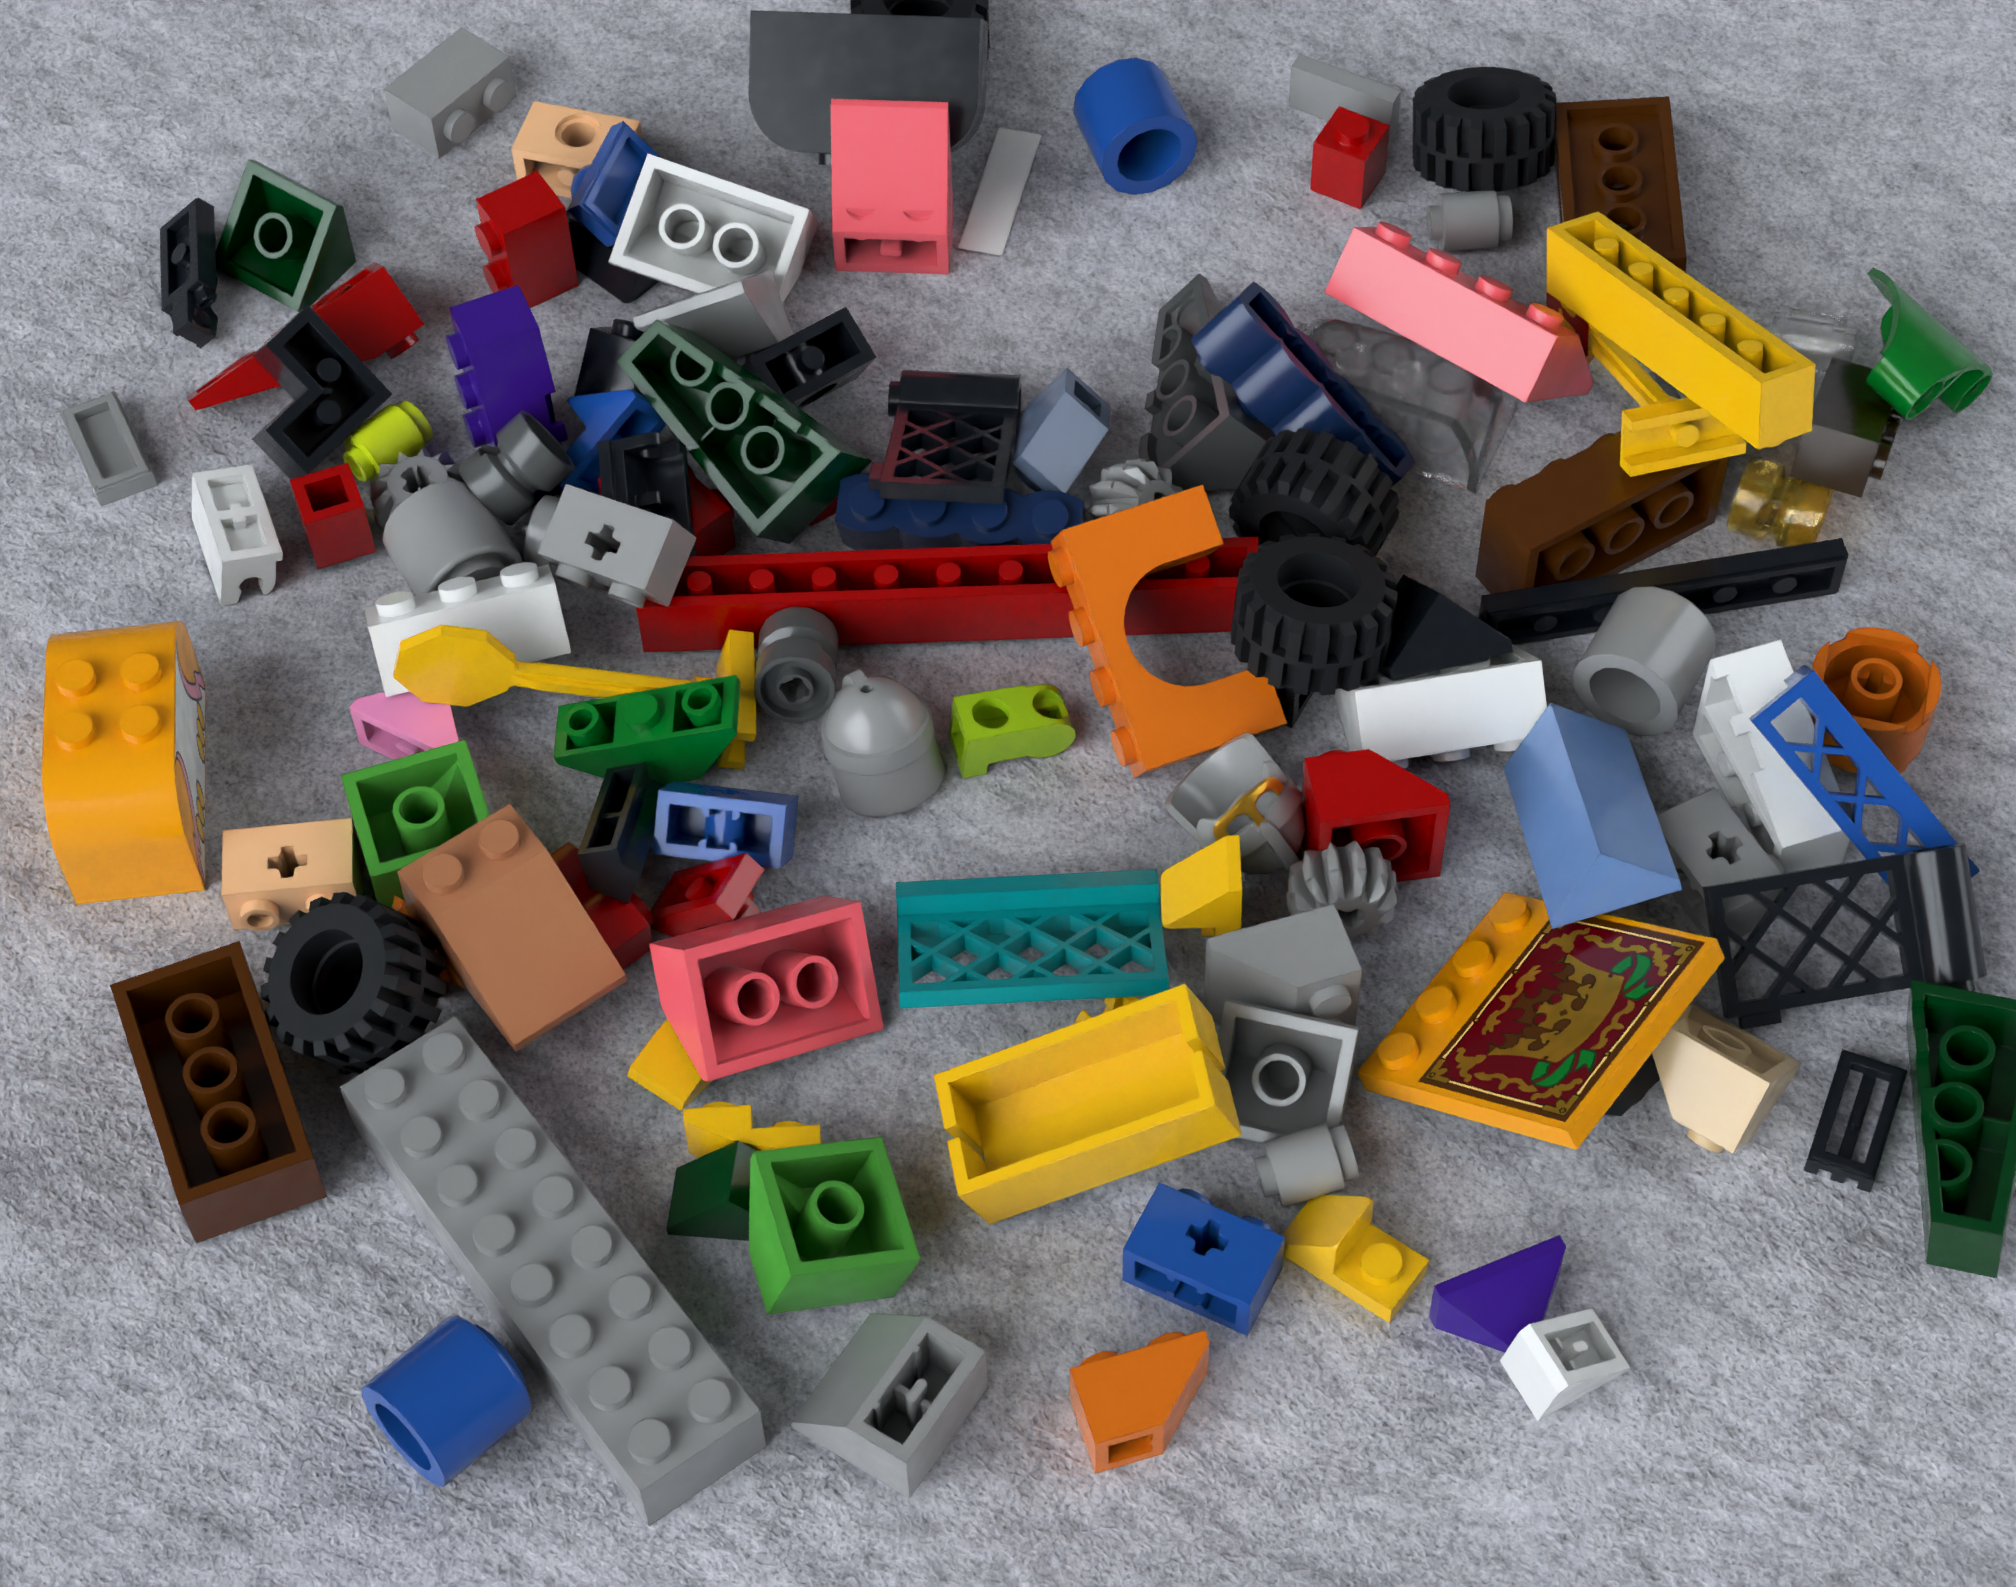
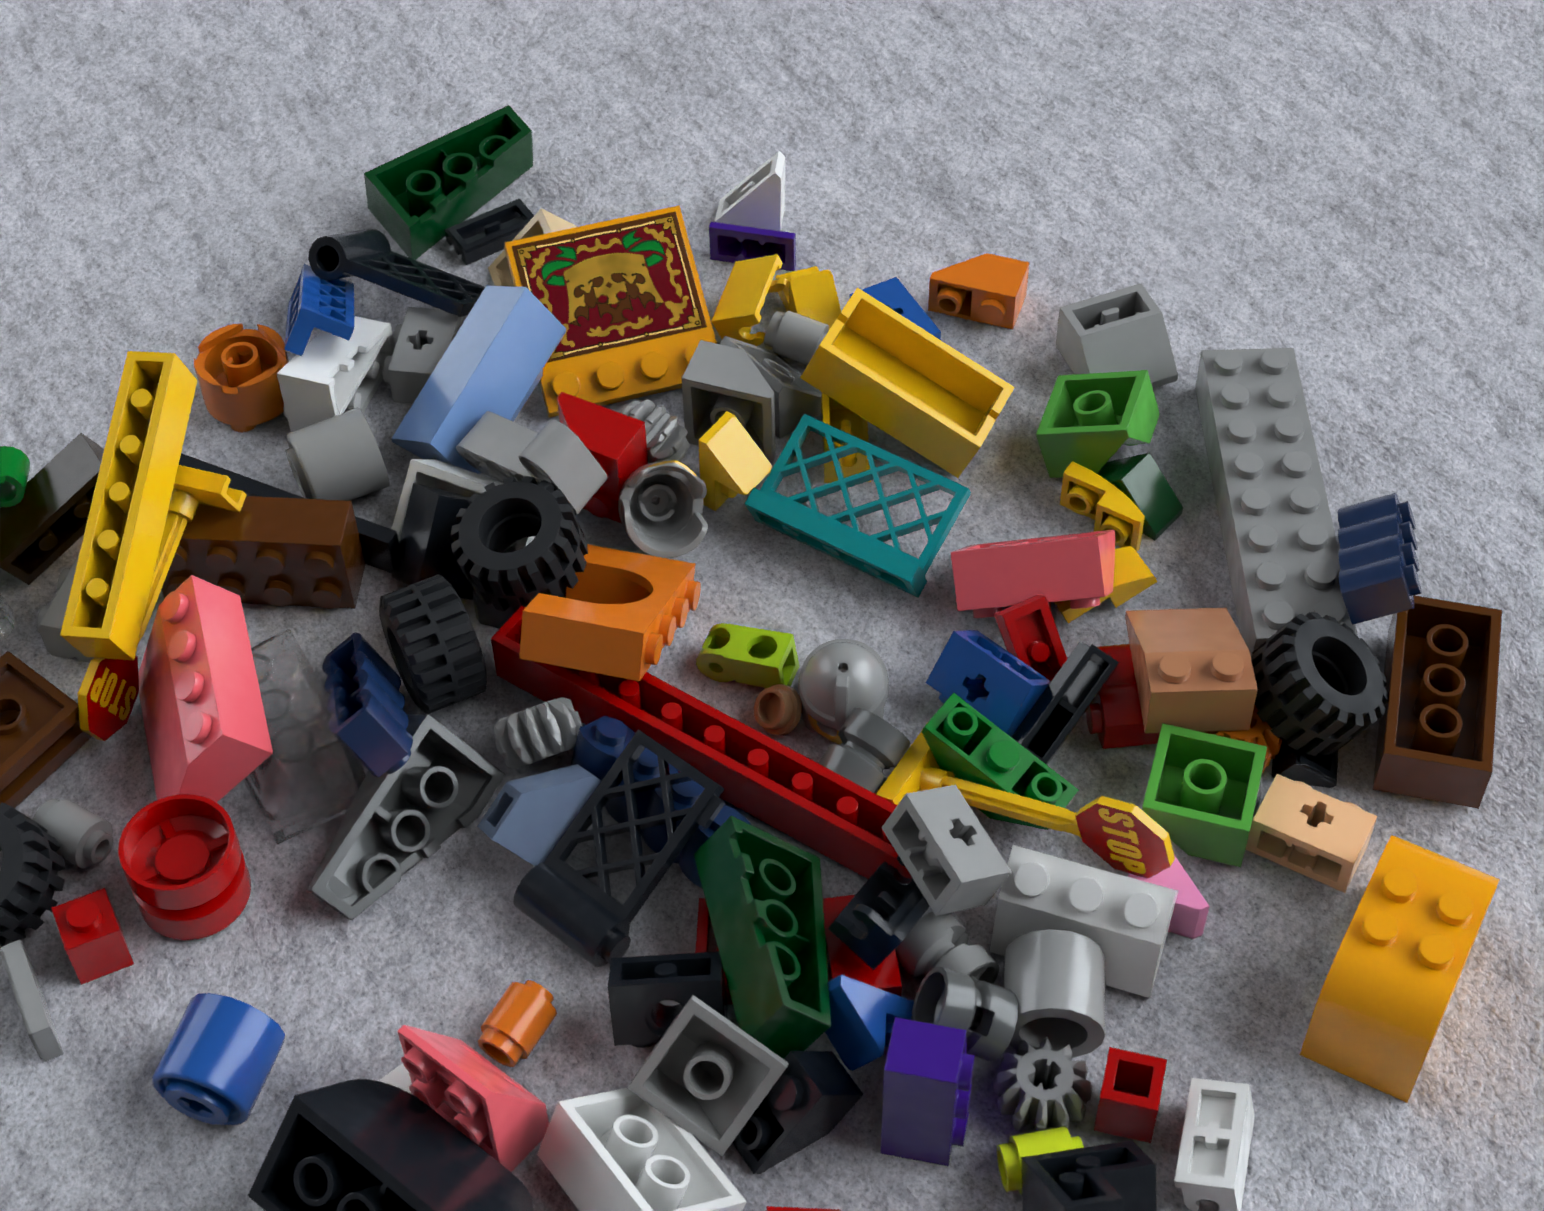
camera: 145 degrees left, 5 degrees down
(366, 1196) = (1377, 558): none -> dark blue brick
(448, 1399) = (1376, 455): blue piece -> none
(927, 302) = (517, 1022): none -> orange brick
(936, 692) = (778, 709): none -> medium nougat plate
(1310, 211) = (185, 866): none -> red wheel
(1418, 1166) = (745, 297): none -> yellow hinge
(1439, 740) = (554, 455): none -> light grey beam

